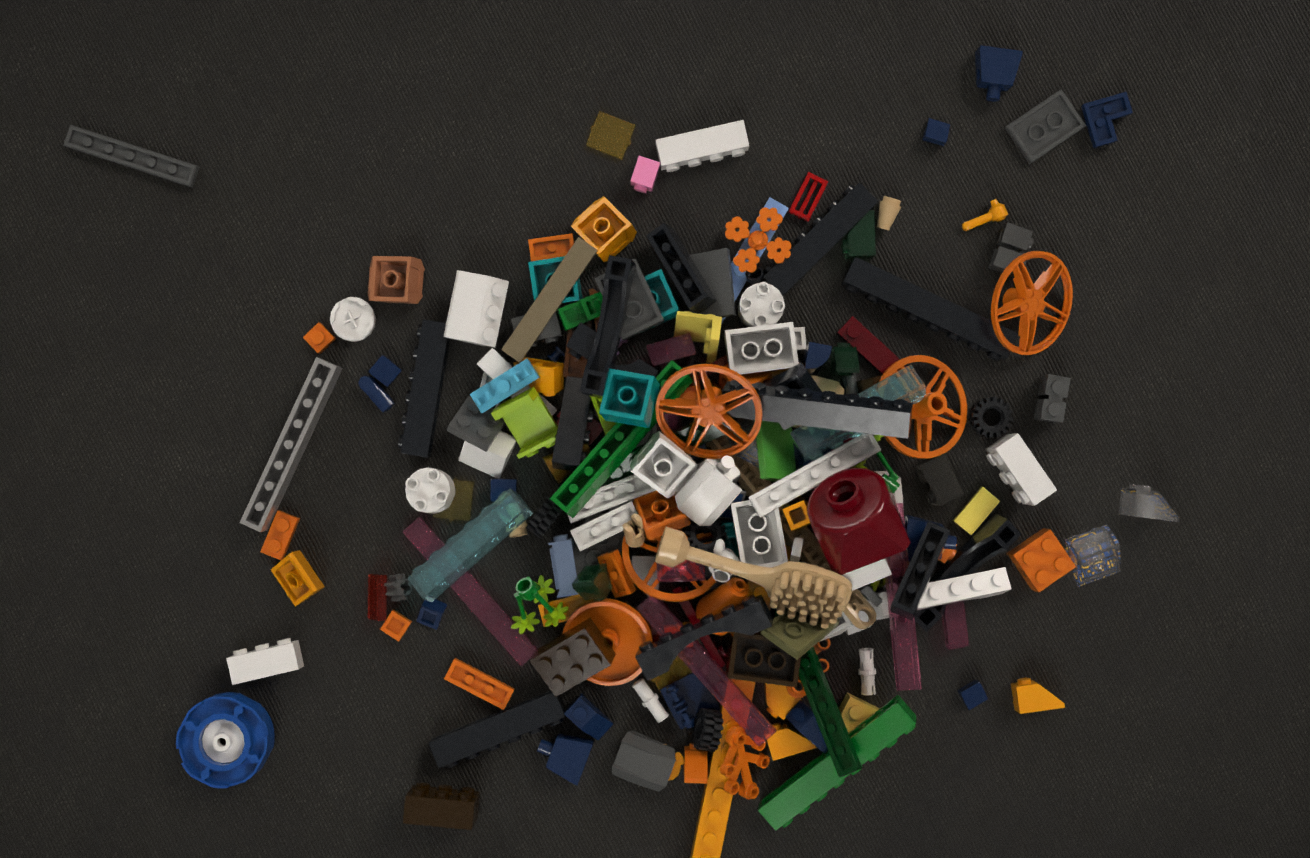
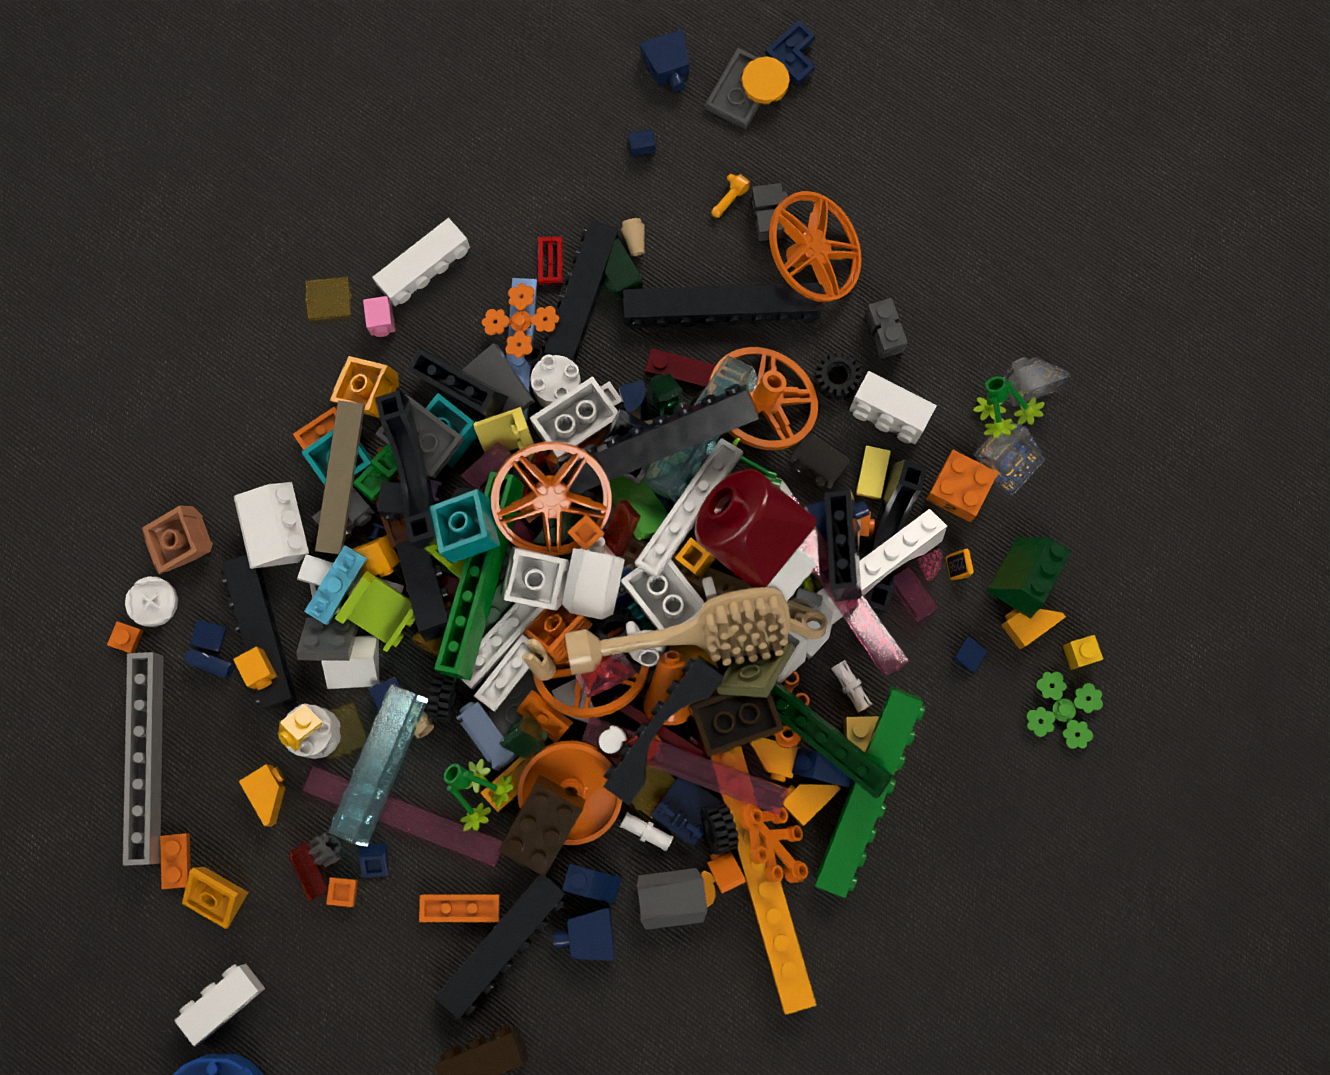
camera: 25 degrees left, 10 degrees down
(372, 518) = (265, 792): none -> light orange slope
(410, 421) = (255, 668): none -> light orange brick
(422, 487) = (298, 727): none -> yellow bracket
(660, 622) = (612, 740): none -> white piece
(722, 452) = (585, 532): none -> orange plate
(752, 461) = (621, 528): none -> clear red tile
(982, 608) = (930, 564): none -> clear pink tile
(1004, 621) = (959, 565): none -> slope
(1022, 775) = (1064, 710): none -> bright green plant
(1055, 659) = (1029, 573): none -> dark green slope
(1062, 740) = (1082, 652): none -> yellow brick
(1068, 131) = (765, 80): none -> light orange tile
(1109, 505) = (996, 394): none -> plant

